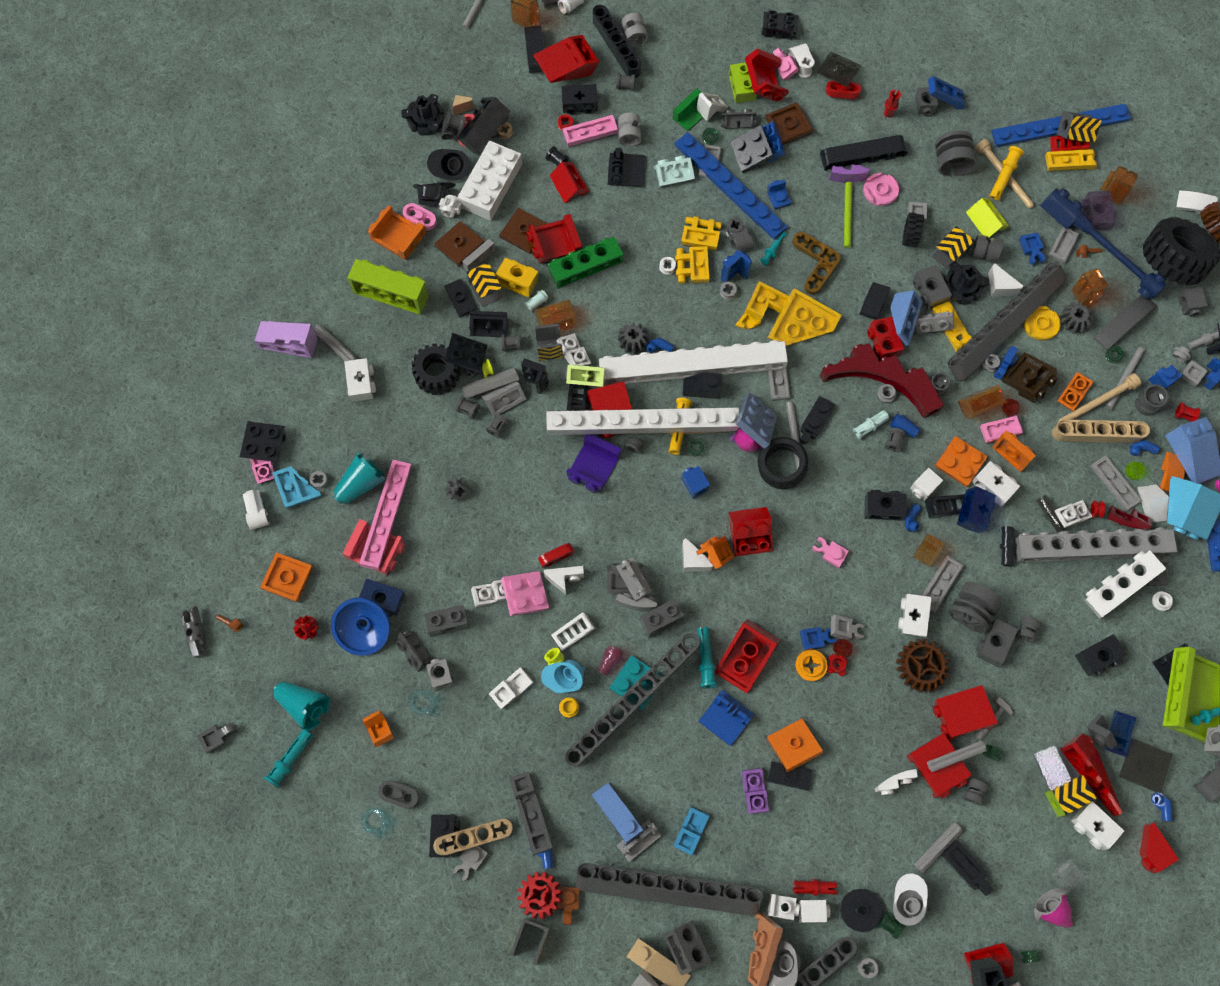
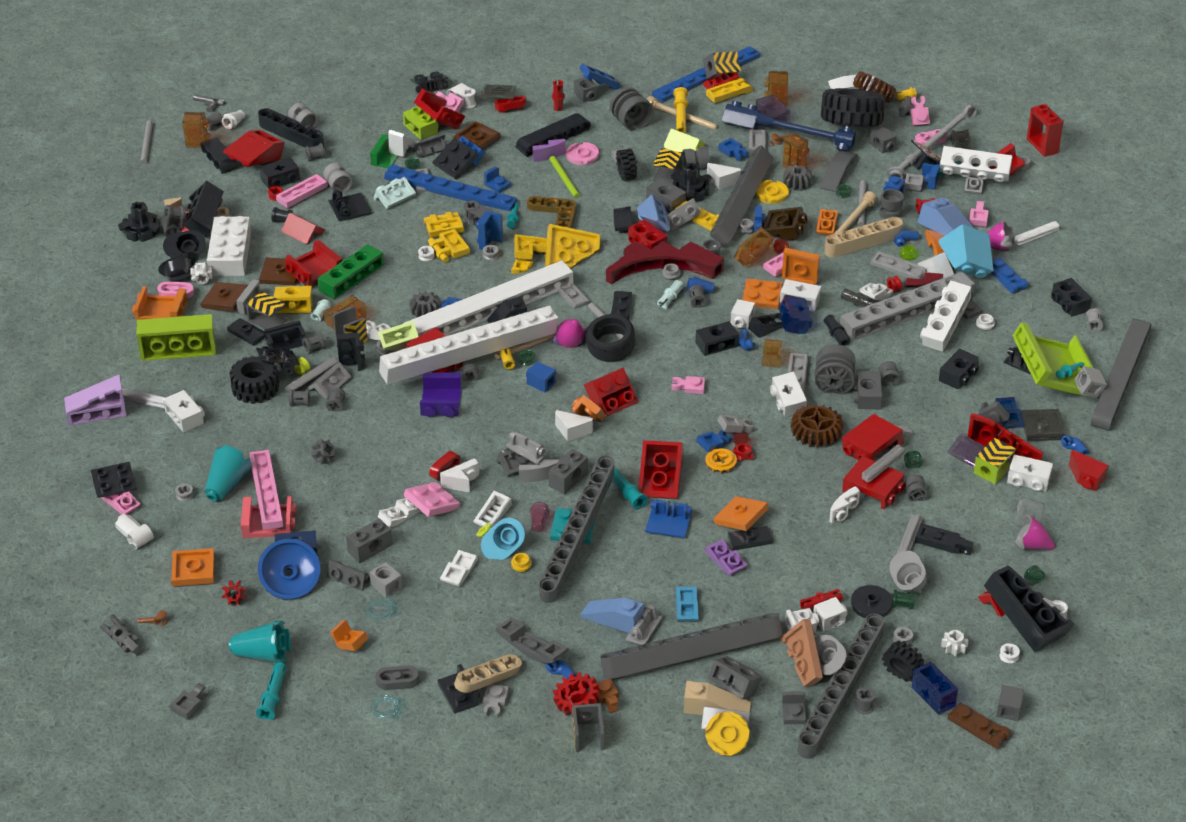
camera: 25 degrees left, 30 degrees down
(293, 487) = (162, 504): medium azure wing -> none
(756, 420) = (565, 309): sand blue plate -> none

